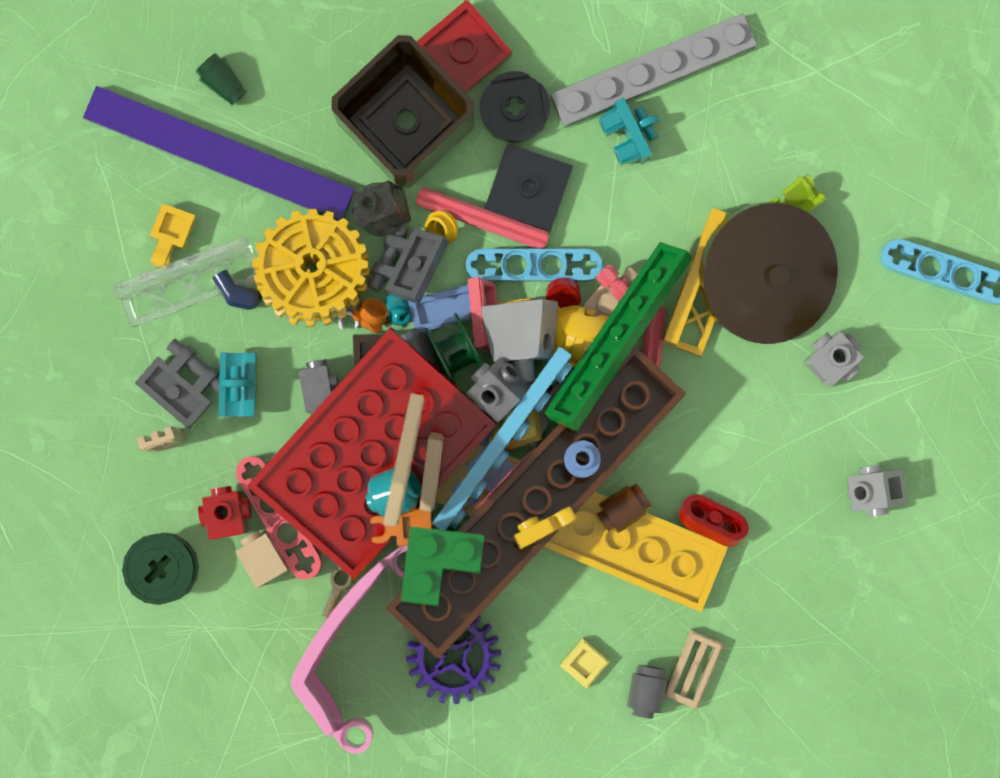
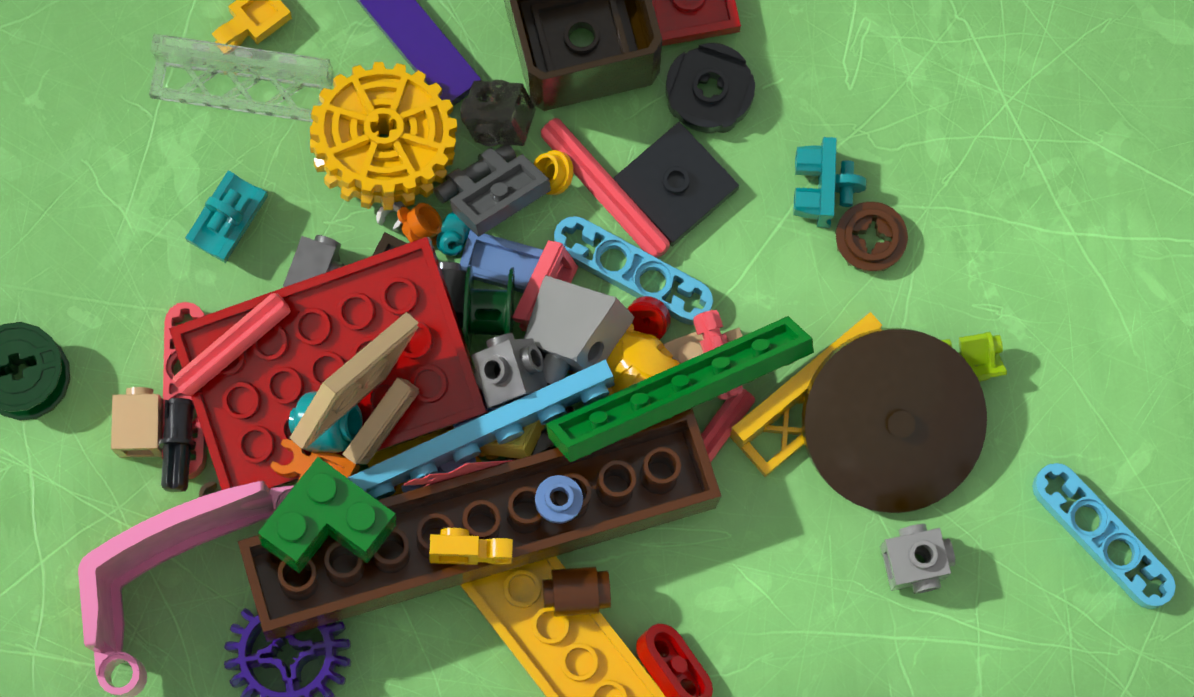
camera: 25 degrees right, 10 degrees down
(161, 440) = (107, 230): tan tile -> none
(173, 391) = (153, 188): dark grey plate -> none
(236, 295) = (283, 120): dark blue arm -> none
(238, 512) = (127, 349): red brick -> none
(297, 474) = (231, 344): none -> coral axle
(298, 560) = (177, 444): none -> black axle
(653, 70) = (890, 132): light grey plate -> none
(689, 137) = (888, 226): none -> reddish brown gear

